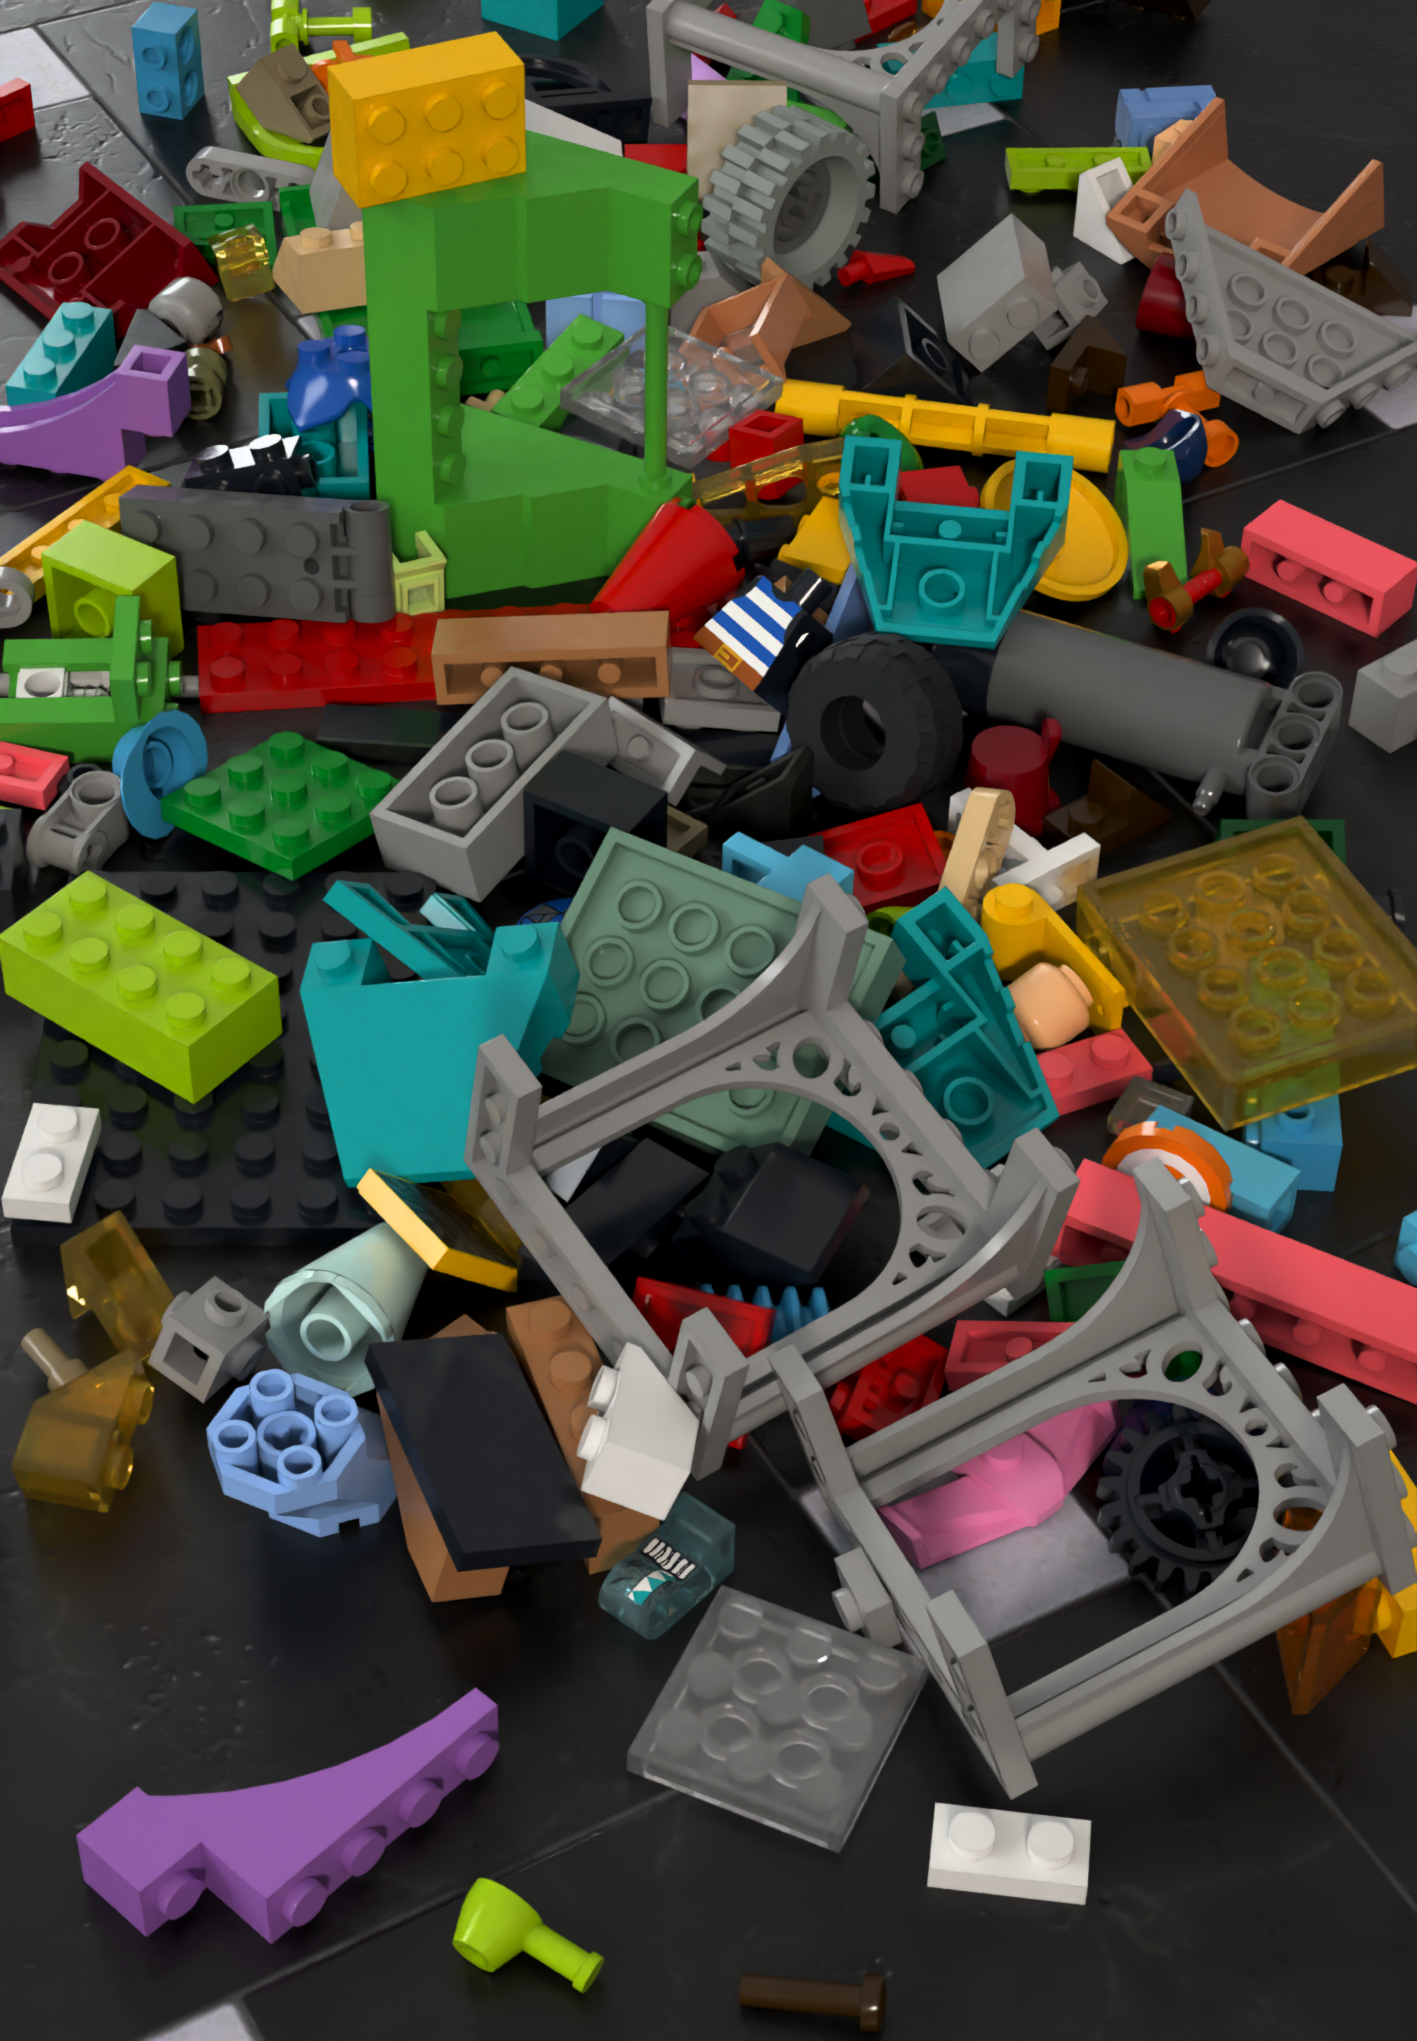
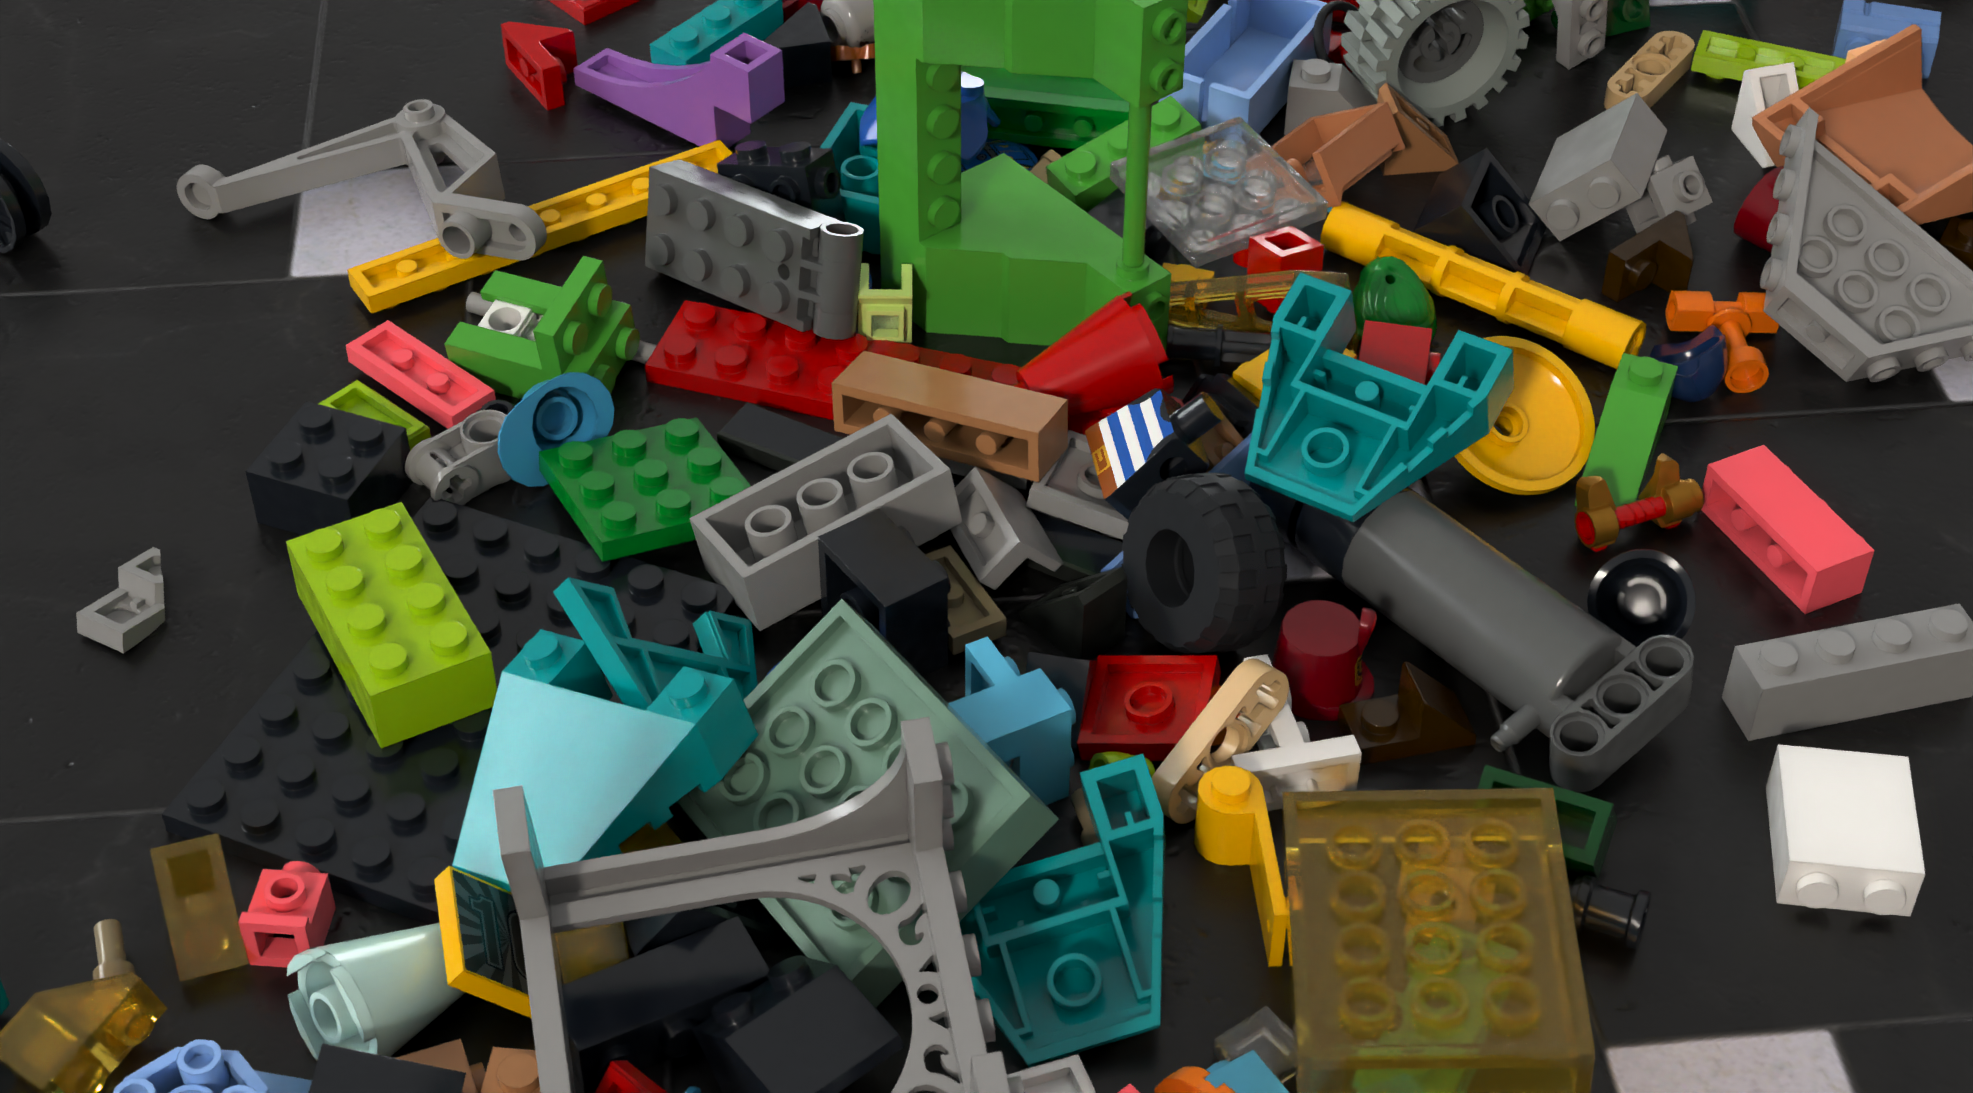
camera: 25 degrees right, 0 degrees up
(51, 1163) = (221, 766): white plate -> none
(95, 566) = (633, 248): lime brick -> none
(199, 1254) = (290, 903): none -> coral brick
(206, 381) = (828, 81): olive wheel -> none
(209, 1339) = (237, 982): light grey brick -> none
(874, 267) = (1511, 116): red bar -> none
(975, 200) = (1665, 56): none -> tan beam
(1050, 1005) = (1213, 906): light nougat head -> none
(1092, 1070) = (1223, 985): coral plate -> none

